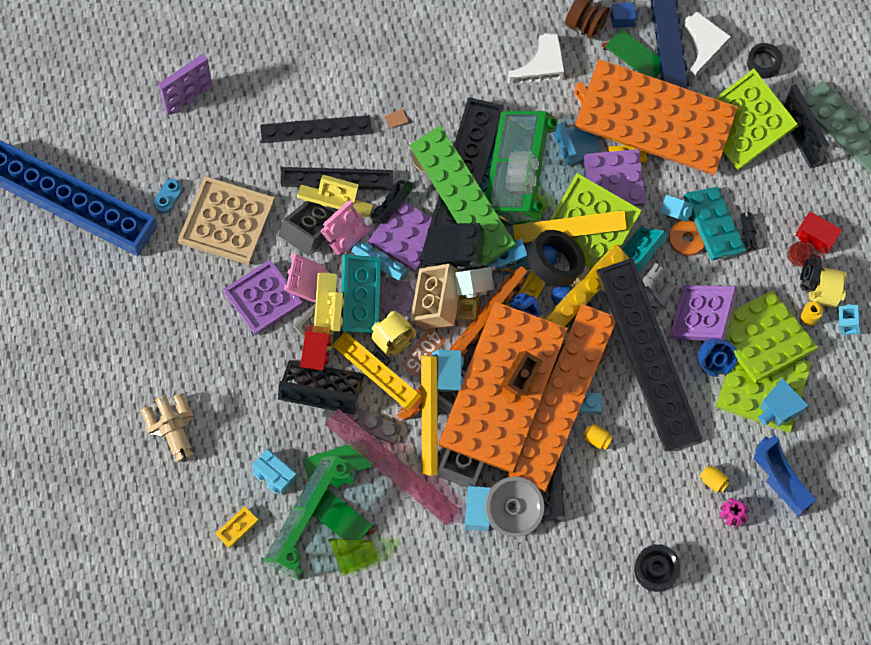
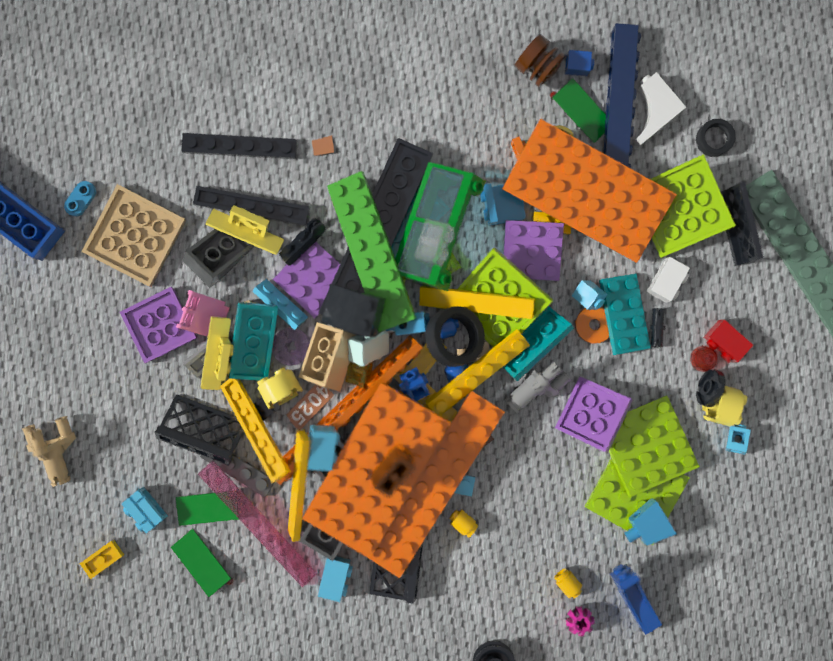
camera: 10 degrees right, 20 degrees up
(185, 84) = (105, 81): medium lavender plate -> none
(315, 347) = (199, 391): red brick -> none
(329, 471) = (192, 531): green windscreen -> none
(344, 228) = (248, 266): bright pink plate -> none
(353, 554) = (207, 605): clear neon green wing -> none
(527, 507) = (368, 596): light grey dish -> none
(545, 65) = (486, 109): white arch -> none
(648, 355) = (528, 450): black plate -> none
(717, 356) = (596, 462): blue cylinder -> none
(749, 186) = (668, 280): none -> white piece
(811, 313) = (696, 426): yellow brick -> none

